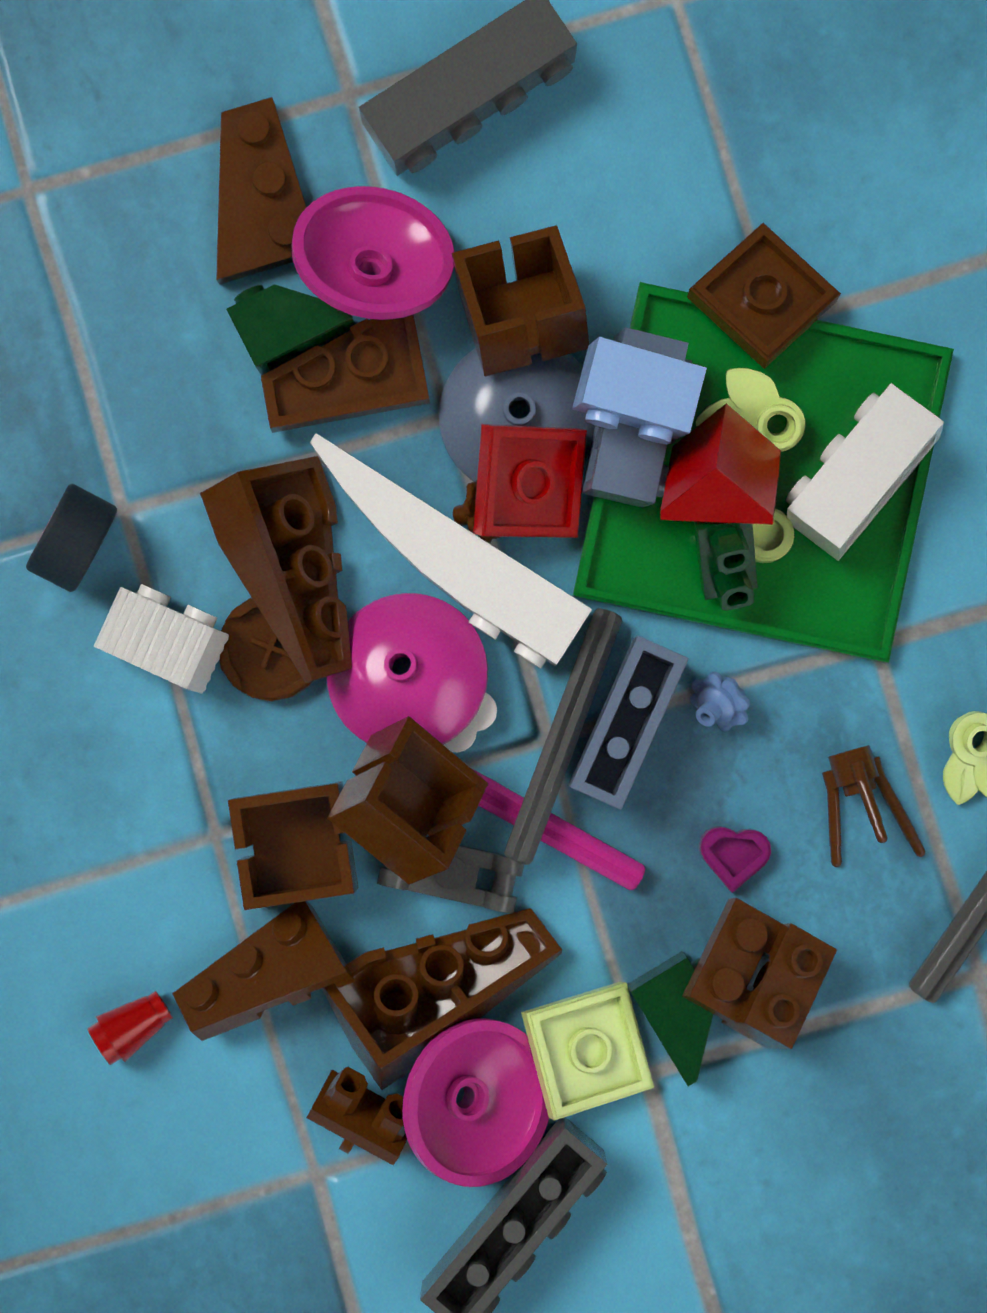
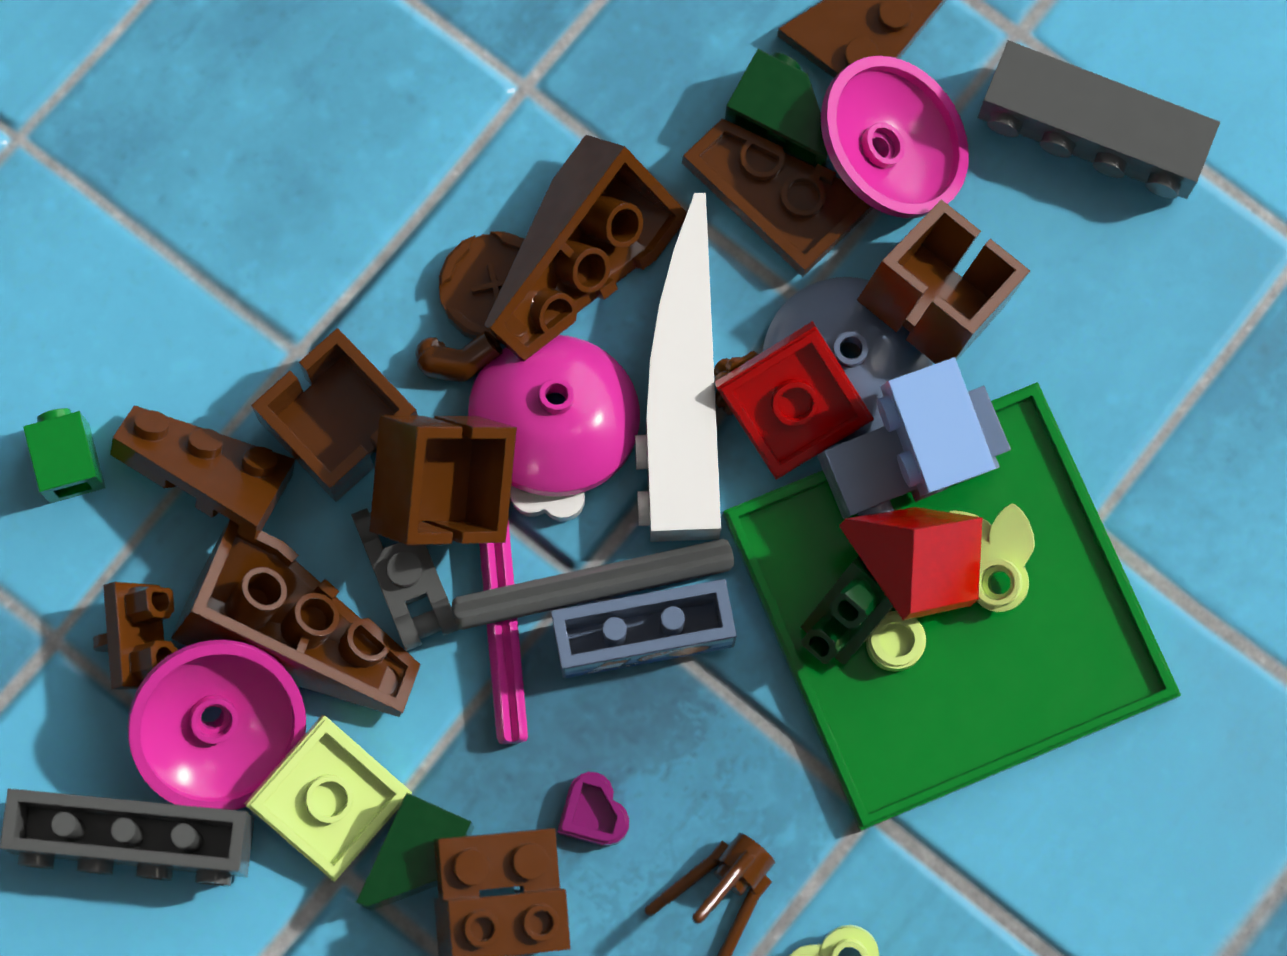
camera: 55 degrees right, 10 degrees down
(71, 538) = (471, 55): black wheel -> none
(129, 1027) = (80, 387): red cone -> none
(161, 639) = (437, 187): white brick -> none
(175, 1076) = (63, 455): none -> green brick
(313, 722) = (454, 364): none -> reddish brown arm
(719, 702) = (719, 701): medium blue plant -> none
(763, 295) = (1103, 494): reddish brown tile -> none
(862, 470) = (1012, 683): white brick -> none

